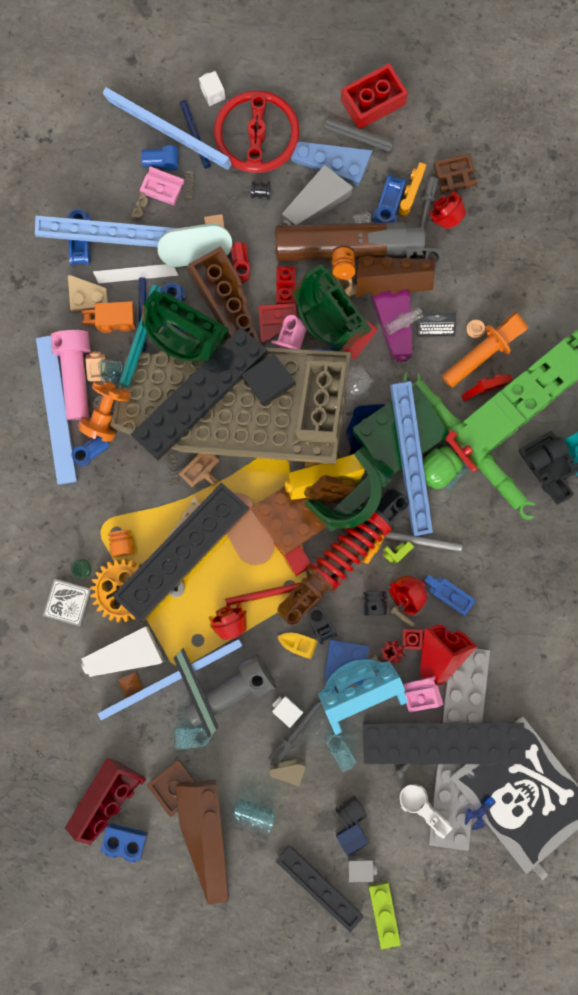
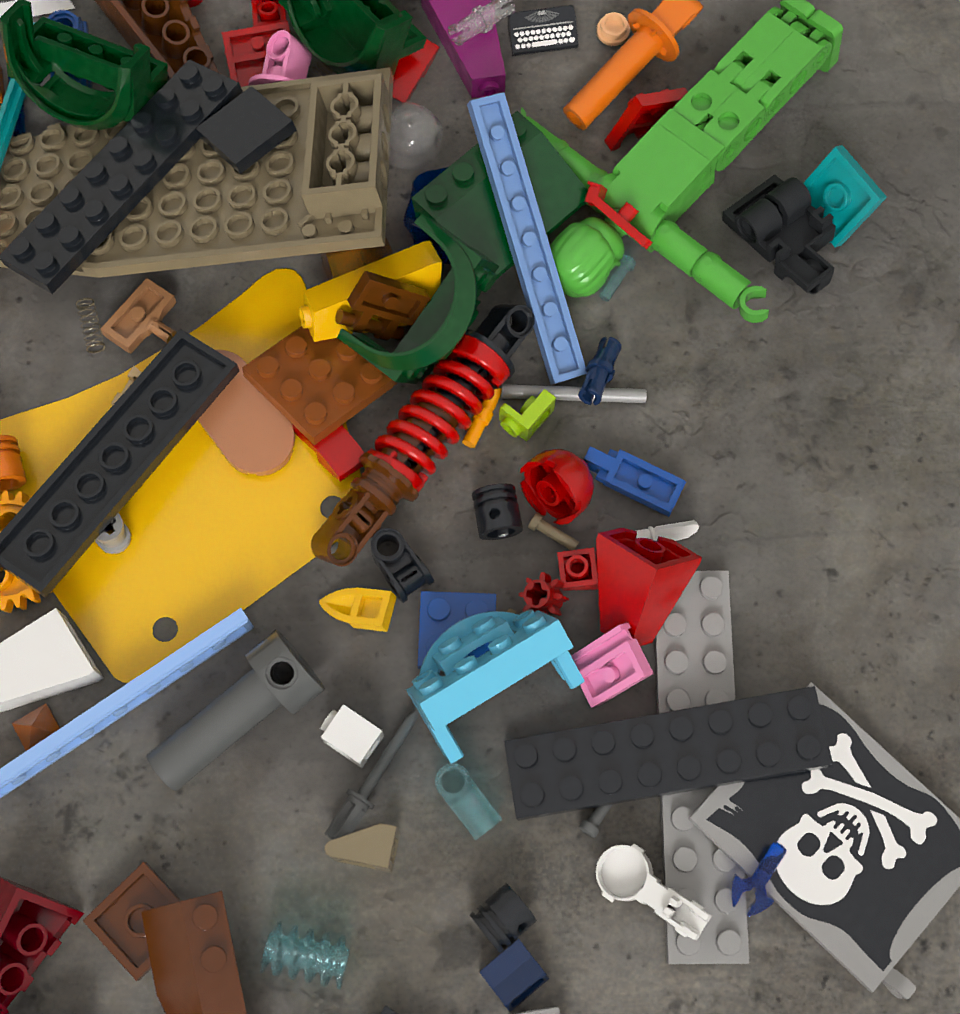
camera: 10 degrees left, 10 degrees down
(188, 737) = (161, 815): clear light blue piece -> none
(196, 693) = (165, 719): sticker -> none
(229, 622) = (220, 580): red cone -> none
(261, 594) = (273, 528): red bar -> none
(439, 532) = (600, 371): none -> dark blue pin
(467, 624) = (673, 531): none -> white piece

